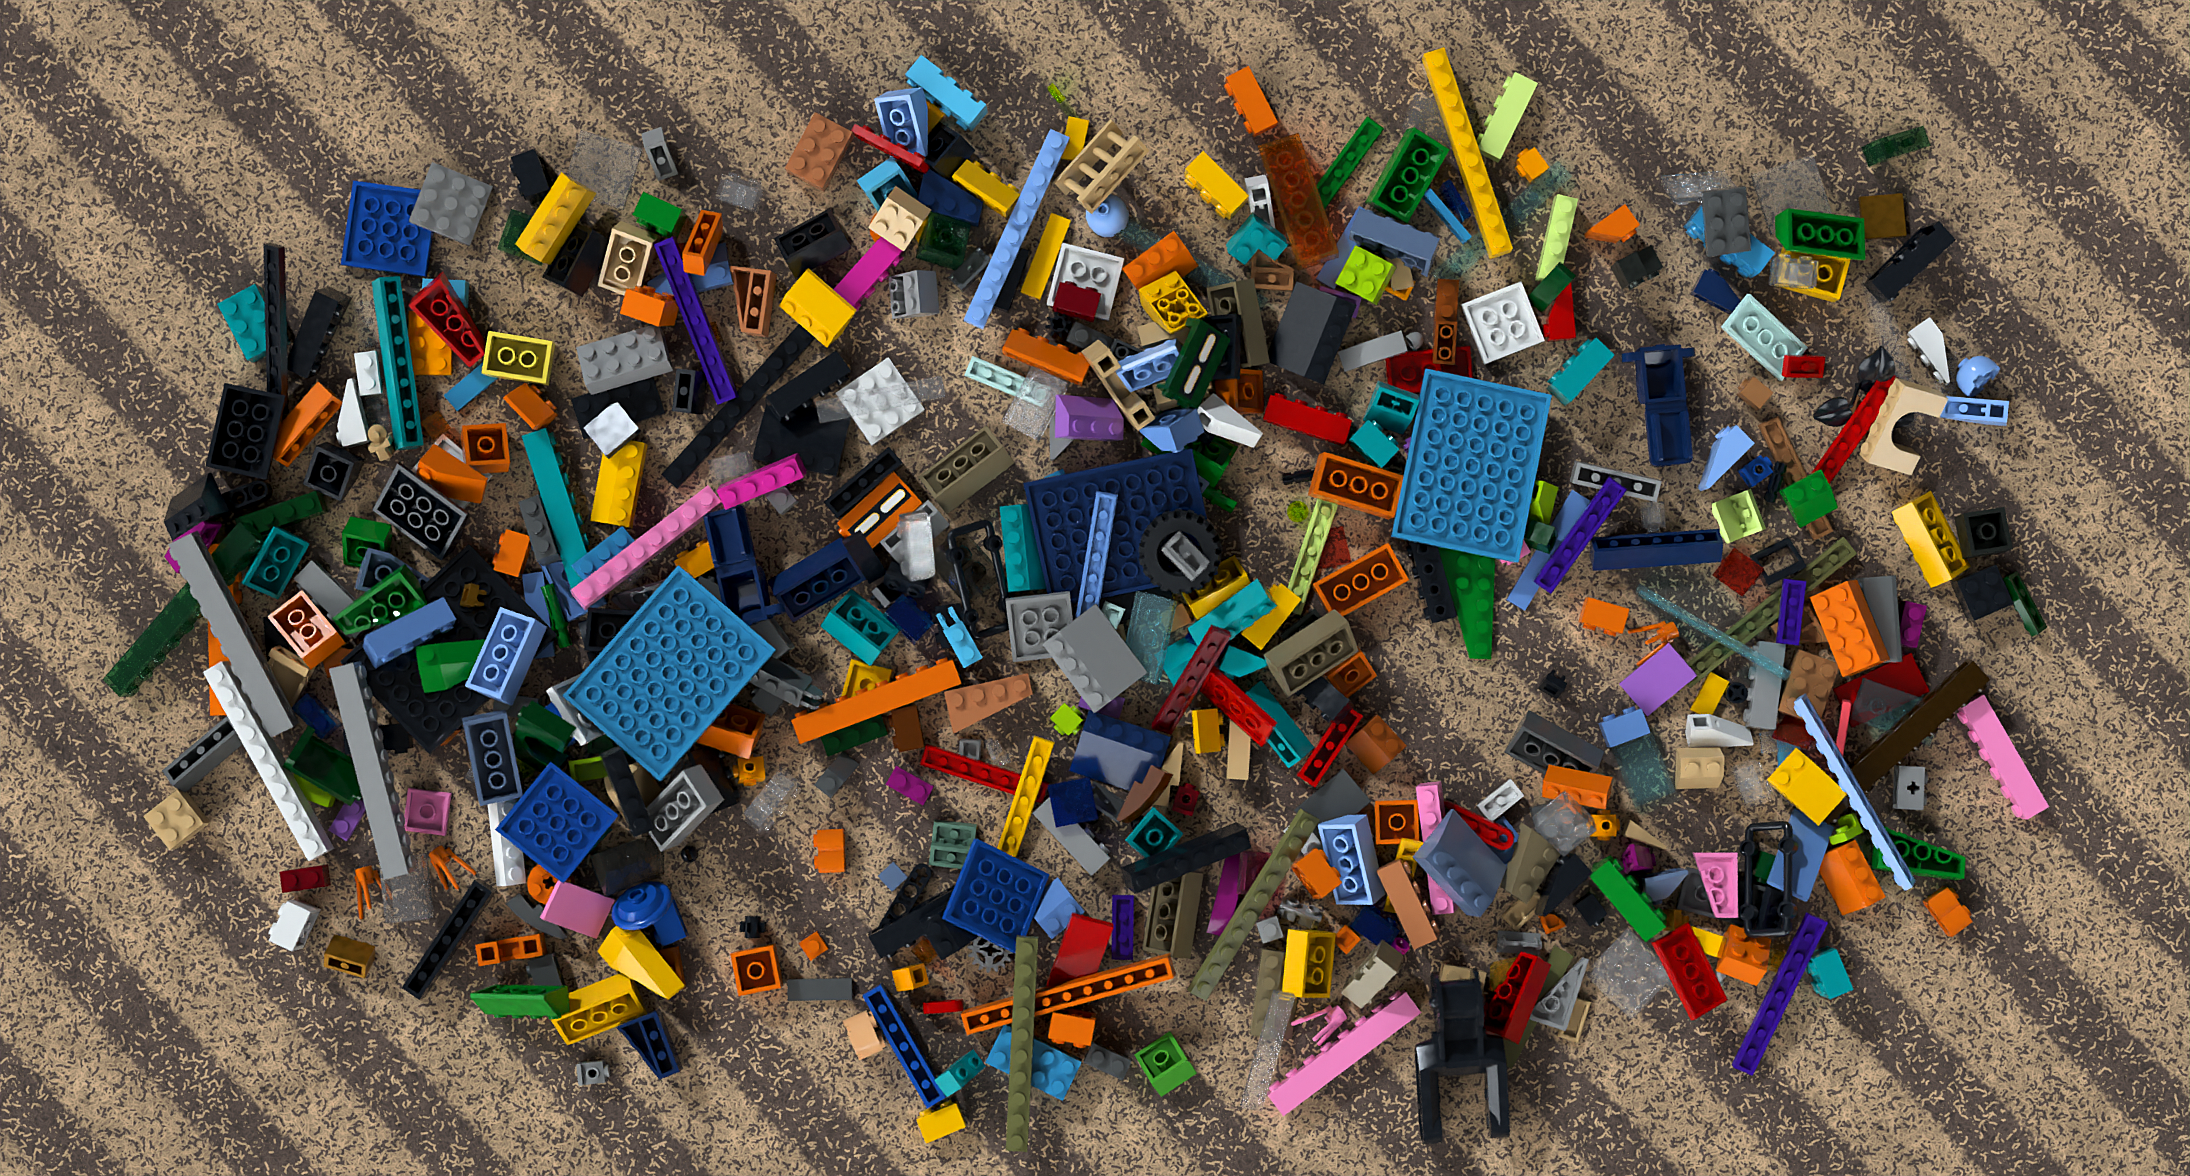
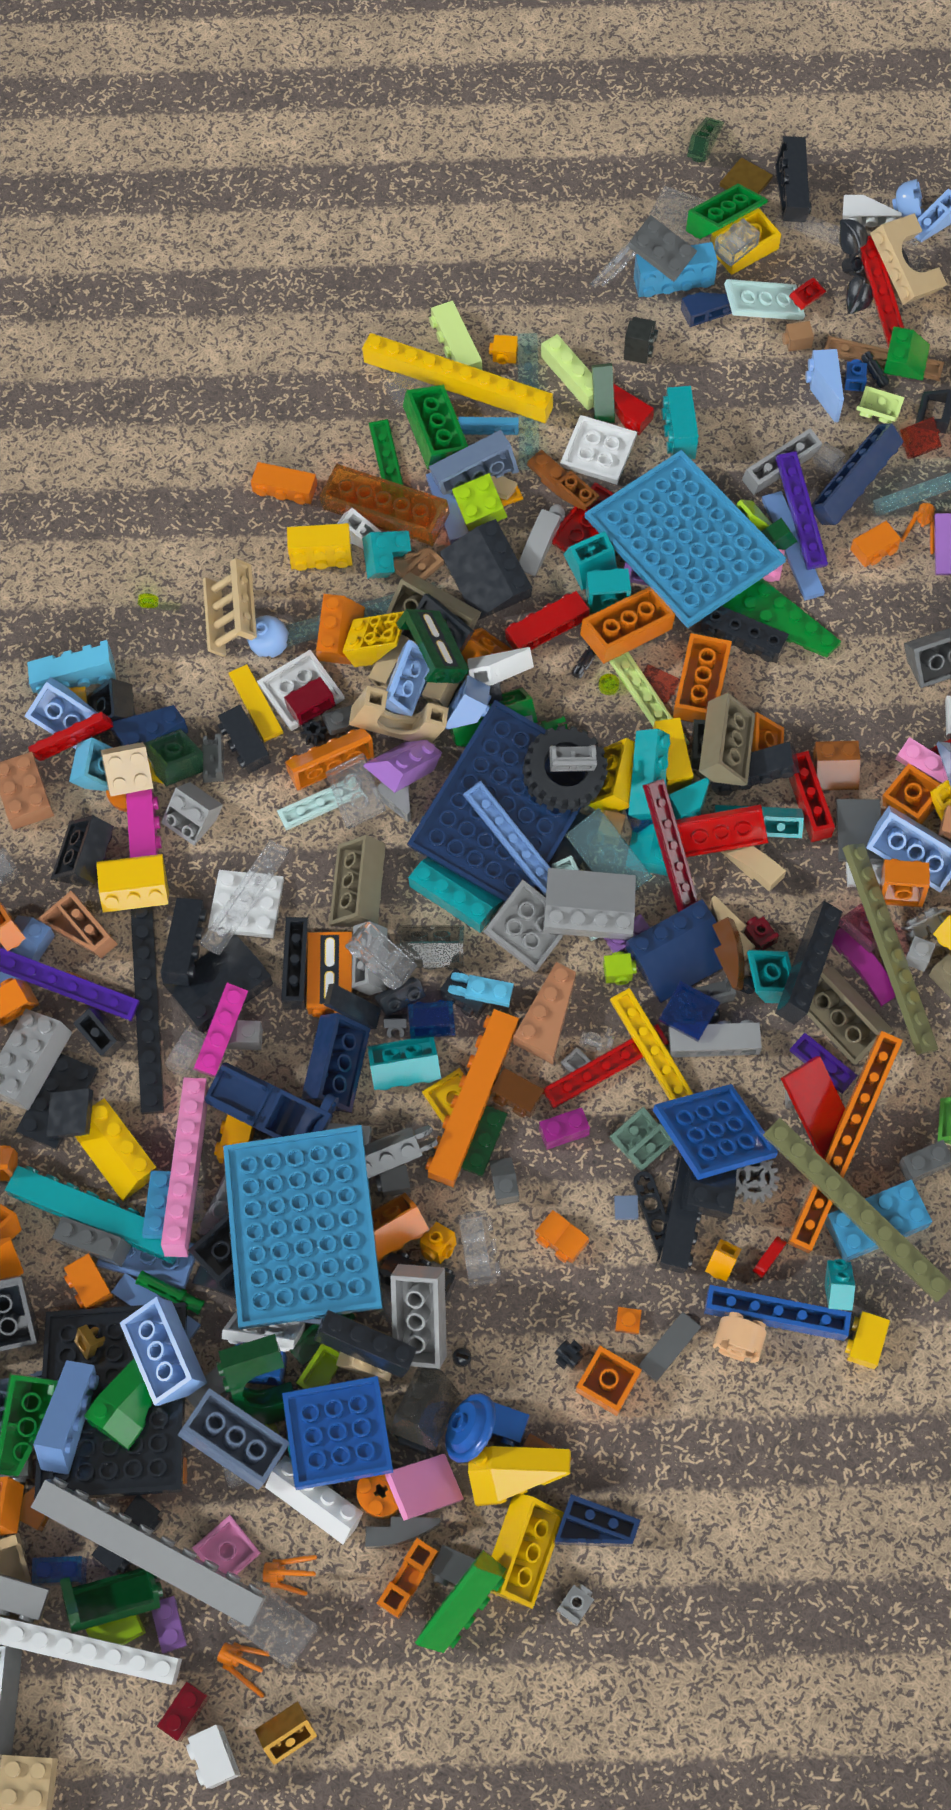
camera: 50 degrees left, 20 degrees down
(449, 939) = (350, 1627): black brick -> none
(924, 952) = (711, 1232): clear orange tile -> none
(956, 556) = (415, 933): black bar -> none
(986, 187) = (180, 694): yellow slope -> none
(1016, 229) = (217, 701): light blue plate -> none
(1056, 908) = (765, 1098): medium blue slope -> none
(1072, 1027) = (873, 1163): orange brick -> none
(1077, 131) = (191, 616): yellow tile -> none
(1206, 730) = (718, 874): yellow slope -> none
(1454, 201) = (483, 406): clear blue tile -> none
(1552, 685) = (899, 615): black tile -> none
(1615, 227) = (600, 328): orange slope -> none
(1663, 391) = (739, 382): dark blue piece -> none

